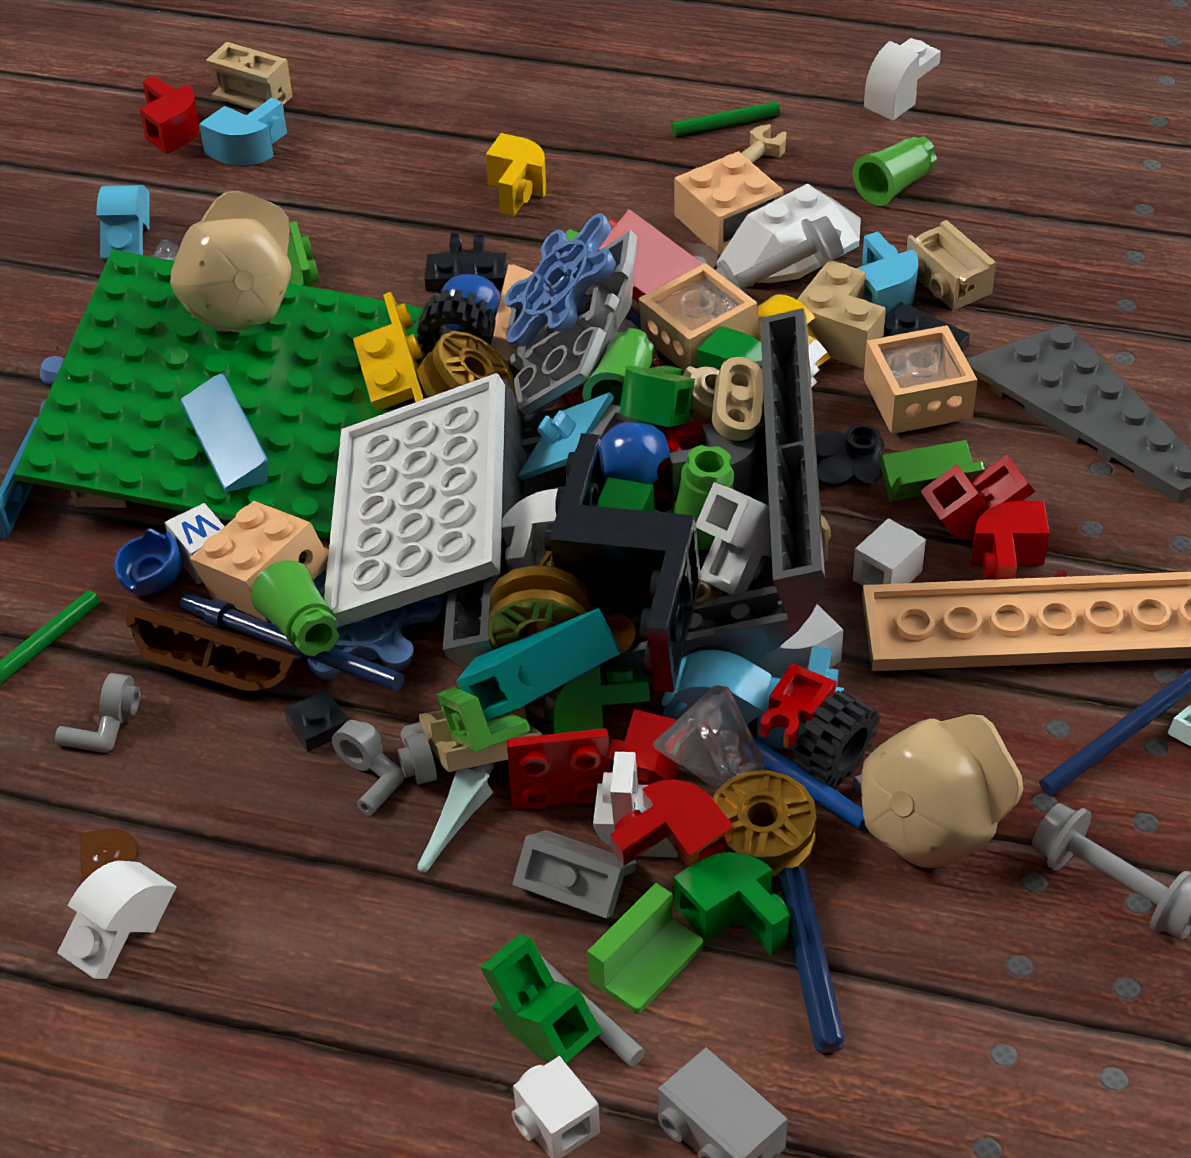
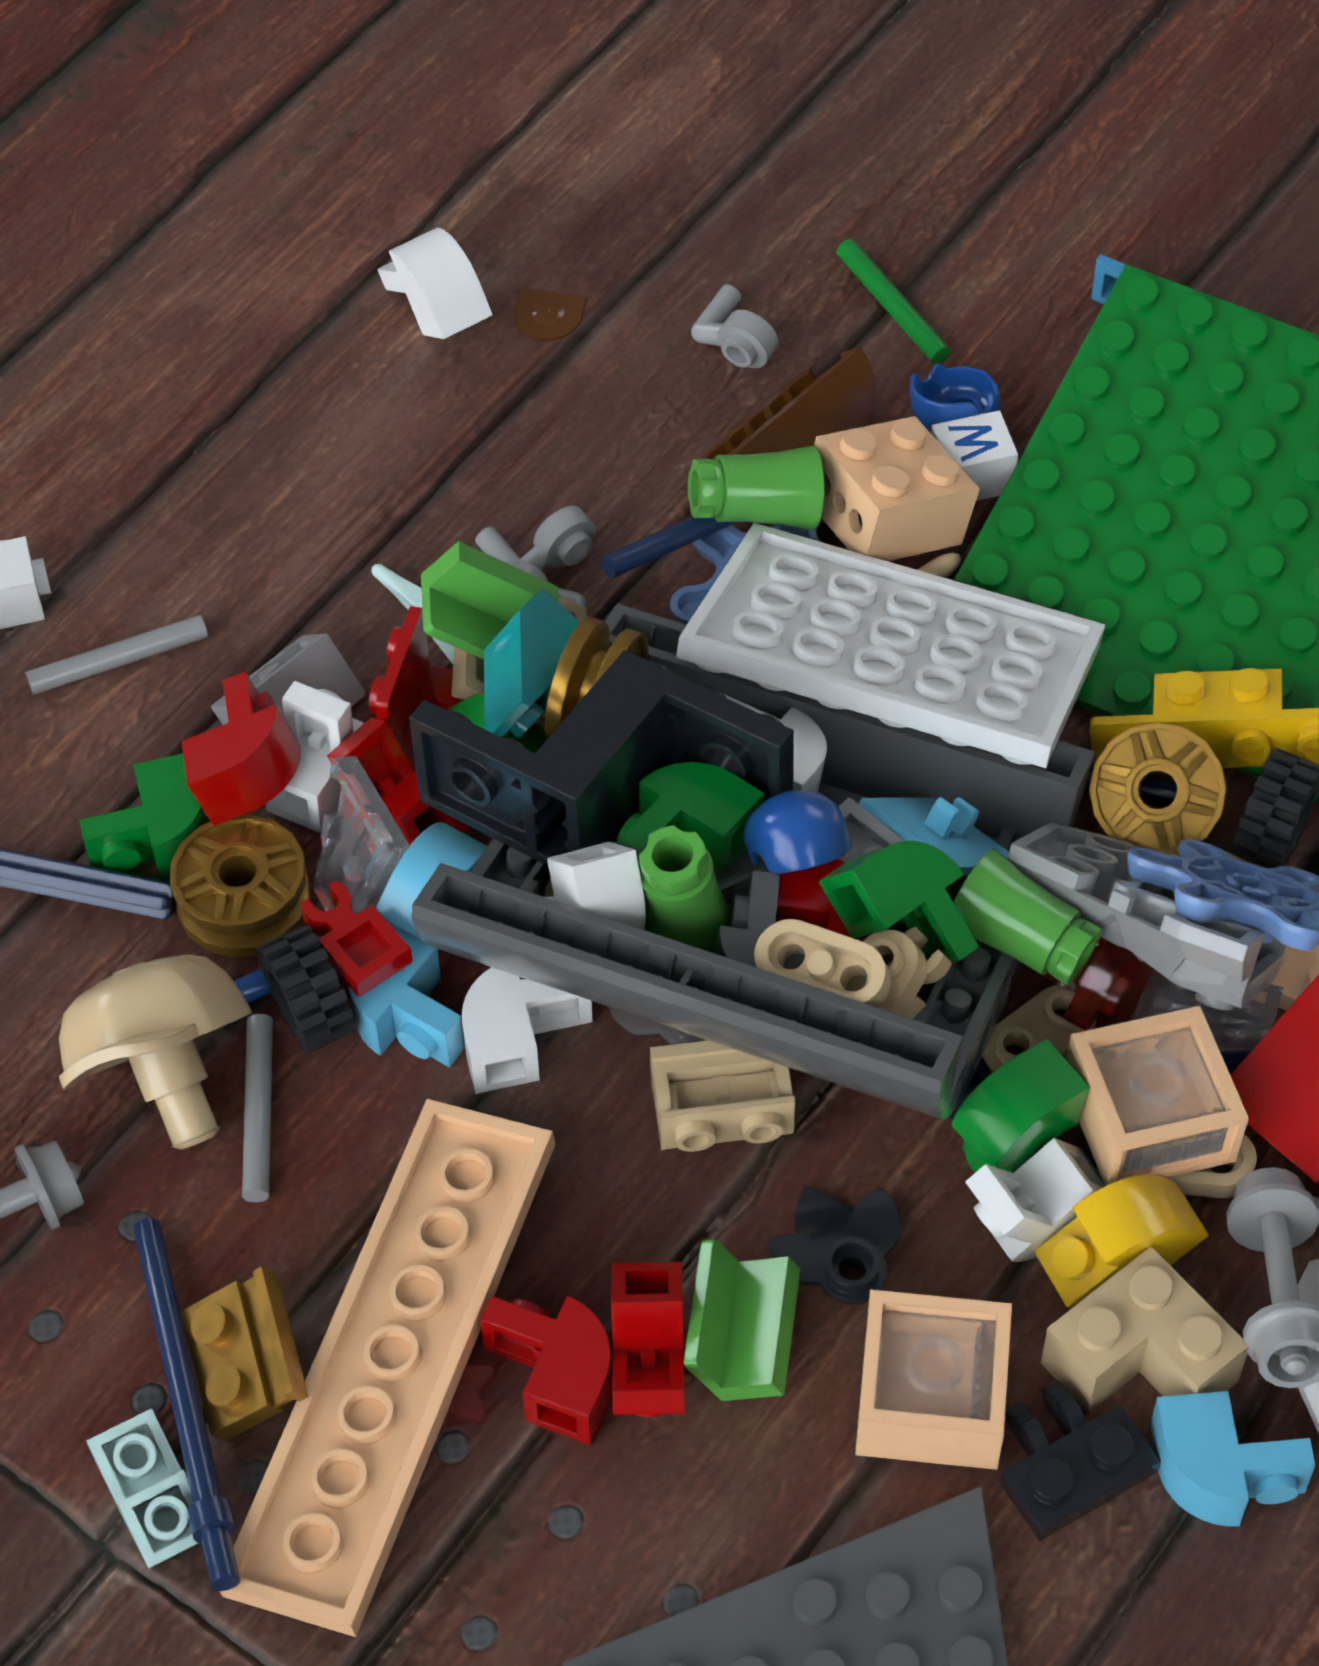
camera: 110 degrees right, 10 degrees up
(226, 435) = (1126, 490): slope -> none
(315, 719) = (635, 515): black plate -> none
(535, 1008) = (116, 603): green brick -> none
(642, 951) = (140, 717): bright green panel -> none
(889, 556) = (598, 1197): white brick -> none
(952, 266) = (1222, 1571): tan hinge -> none
(1104, 688) = (243, 1354): none -> pearl gold plate

